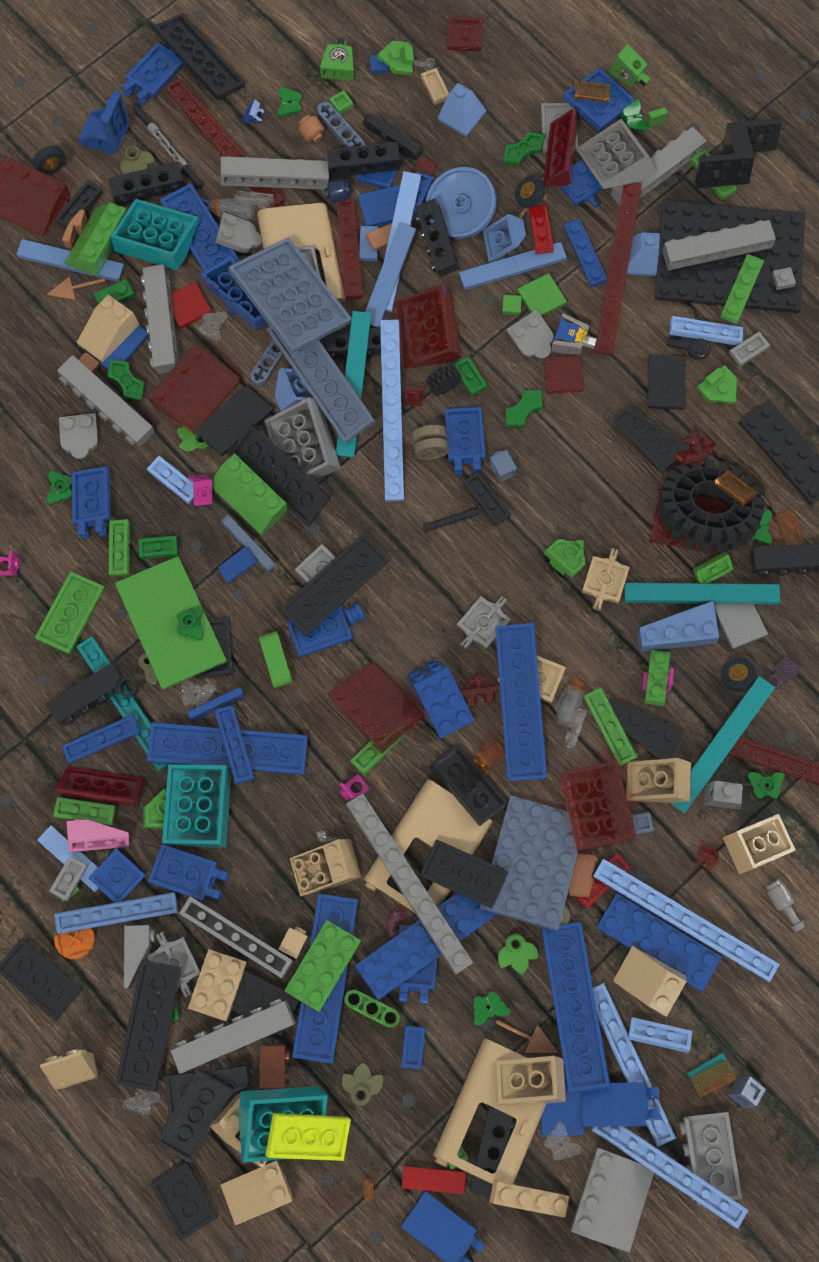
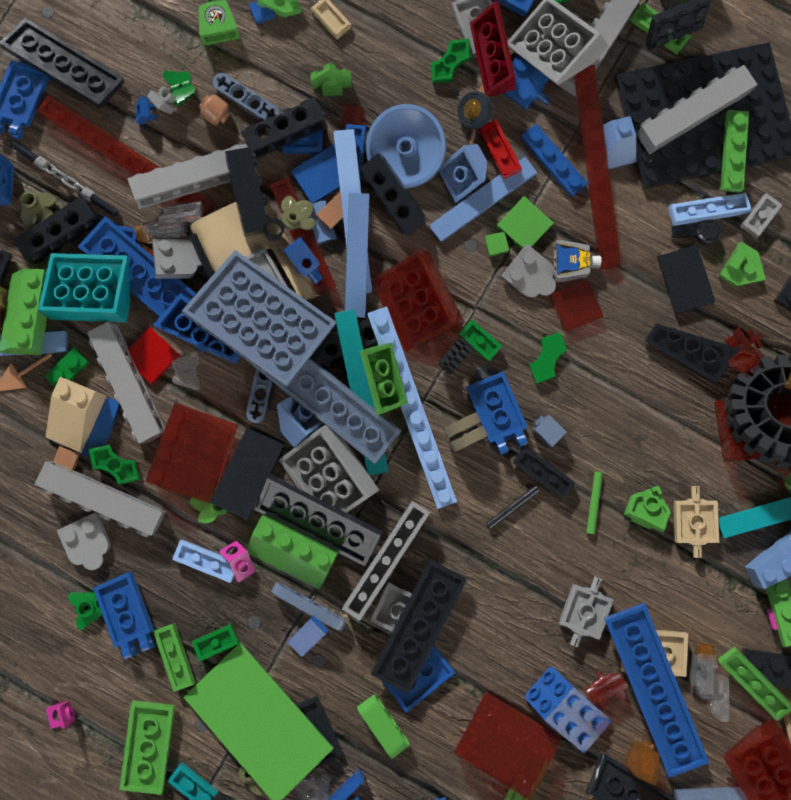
camera: 20 degrees left, 10 degrees up
(190, 629) = (285, 726): green animal -> none
(259, 234) = (201, 255): none -> black bar
(271, 108) = (161, 101): none -> light grey tile
(314, 200) = (247, 194): none -> black hinge
(326, 523) = (385, 560): none -> light grey brick
(338, 190) = (270, 172): dark blue head -> none
(340, 256) = (296, 253): none -> blue torso
(341, 102) = (236, 68): bright green plate -> none
(350, 229) = (299, 212): none -> olive plate
(354, 614) = (448, 648): blue wheel -> none
(375, 372) = (383, 377): none -> bright green slope
(388, 134) = (305, 92): black beam -> none
(413, 395) = (428, 382): clear red tile -> none
(418, 132) = (331, 80): none -> bright green plate
(461, 110) = (369, 37): medium blue slope -> none
(523, 537) = (594, 502): none -> bright green bar
(783, 278) = (774, 125): light grey plate -> none

